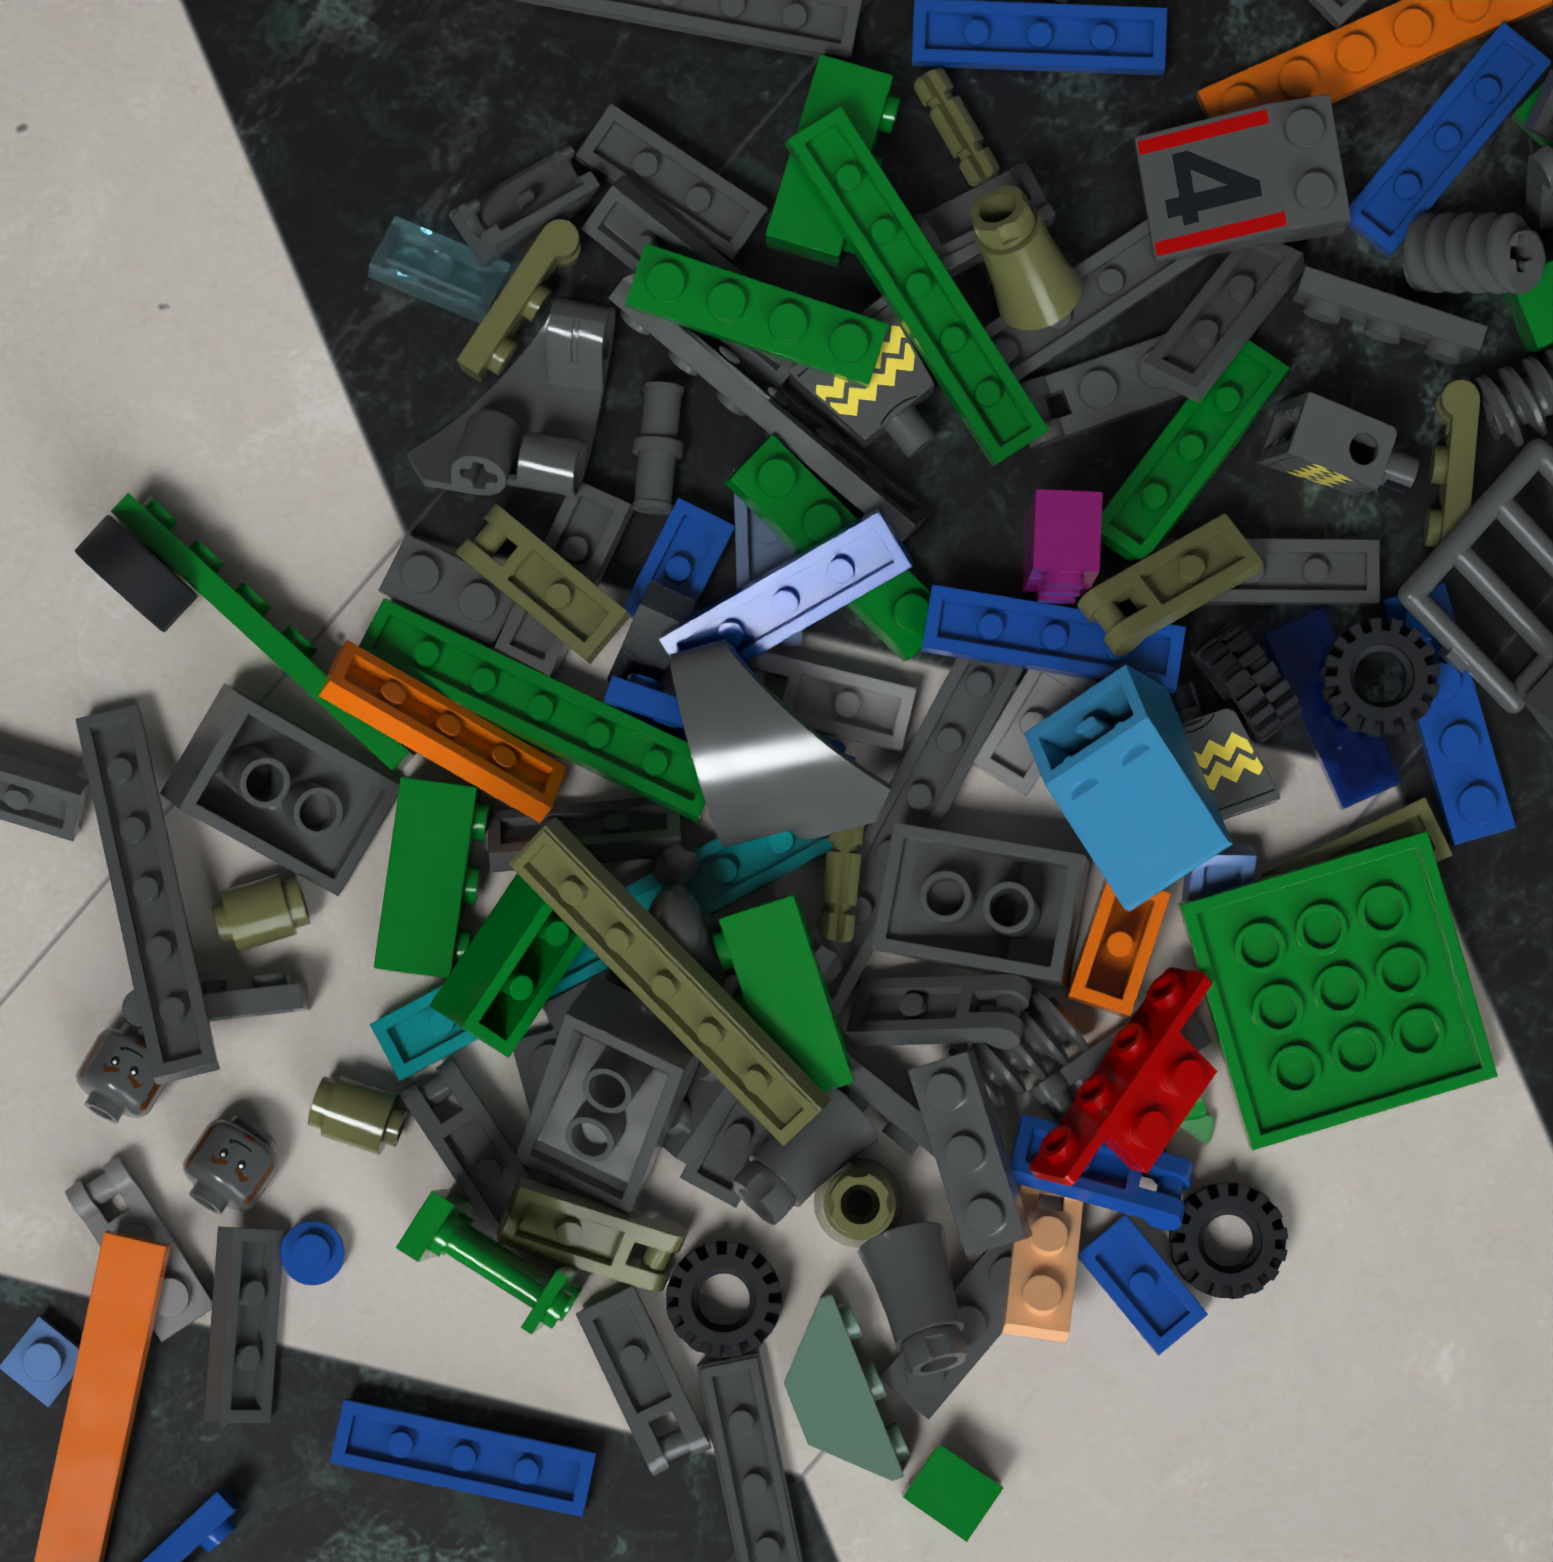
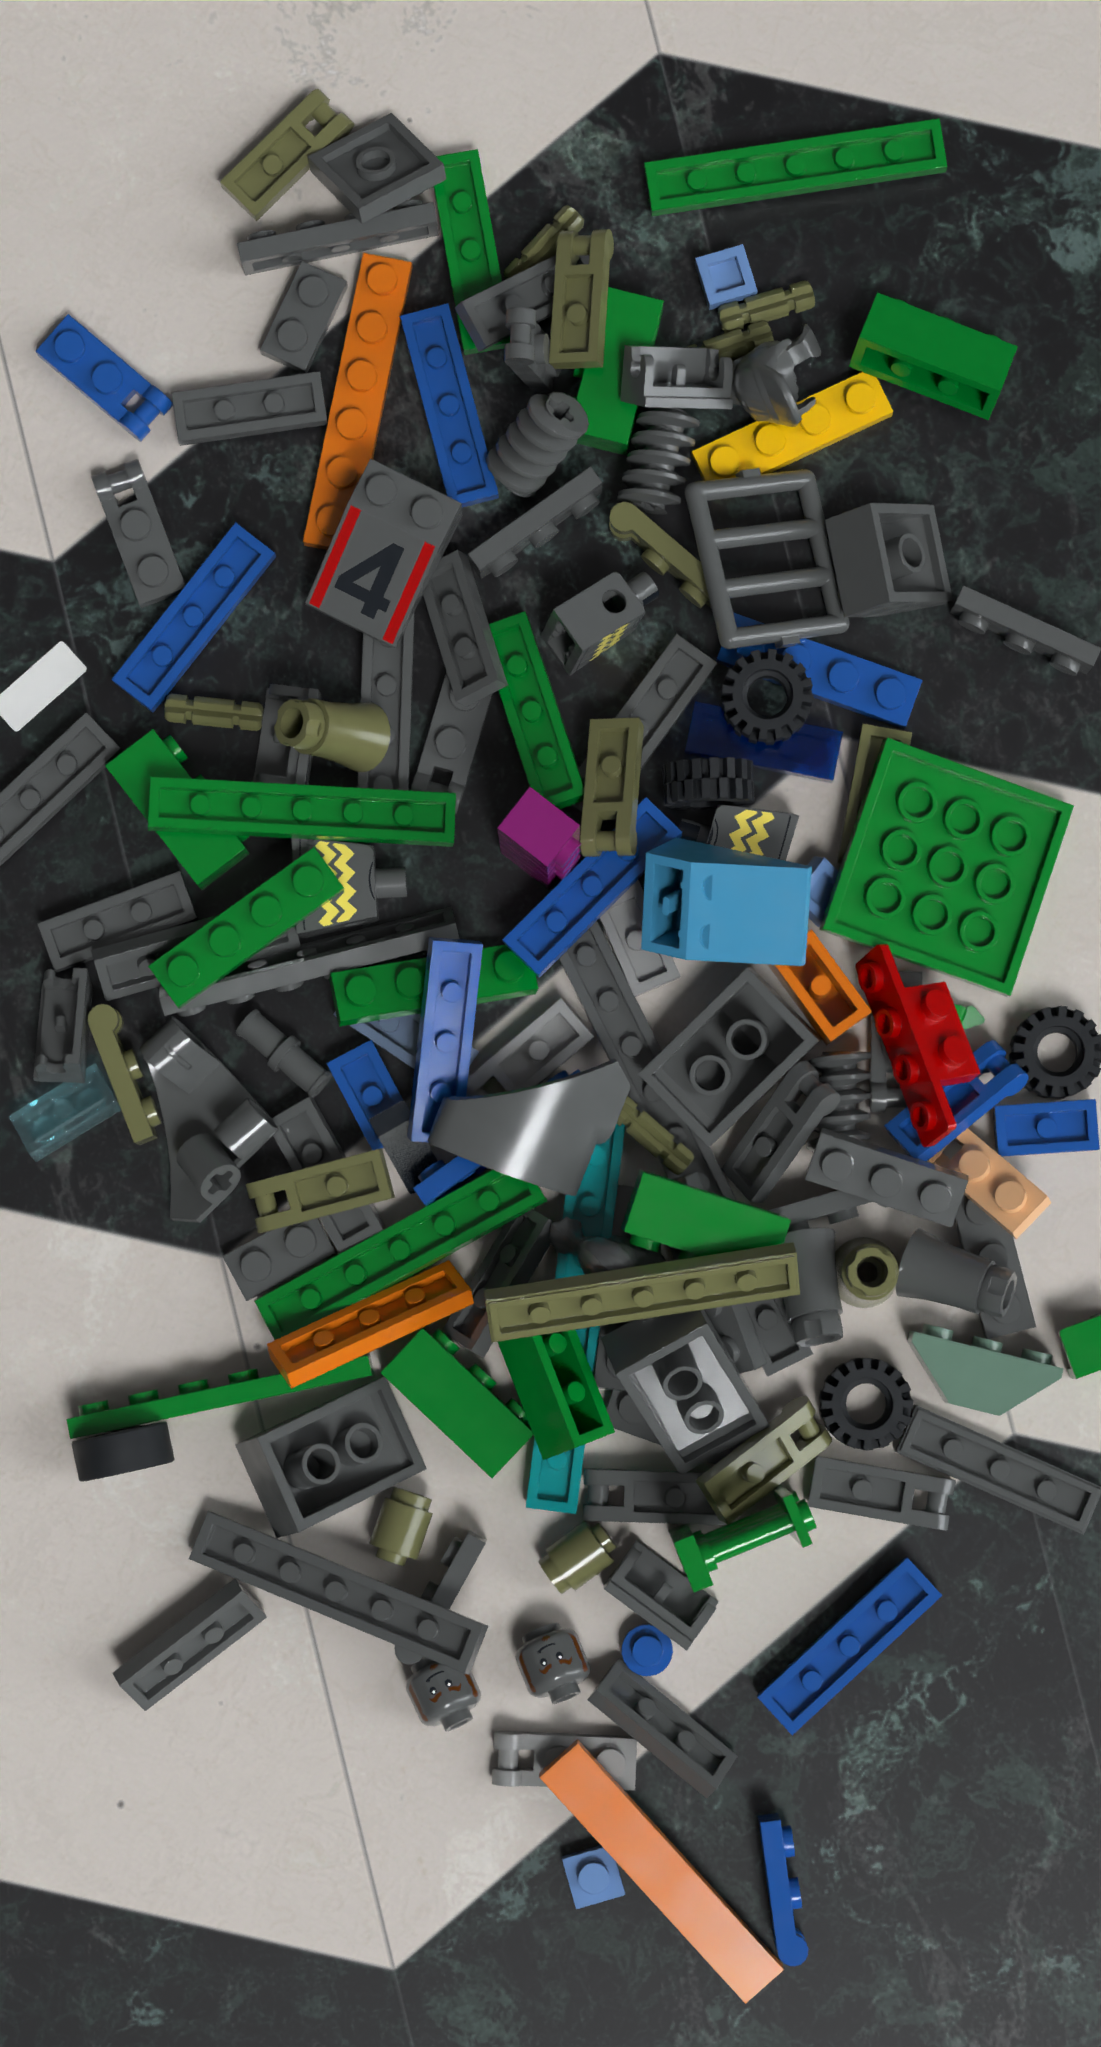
camera: 55 degrees left, 0 degrees up
(375, 1214) = (660, 1595): none -> dark grey hinge

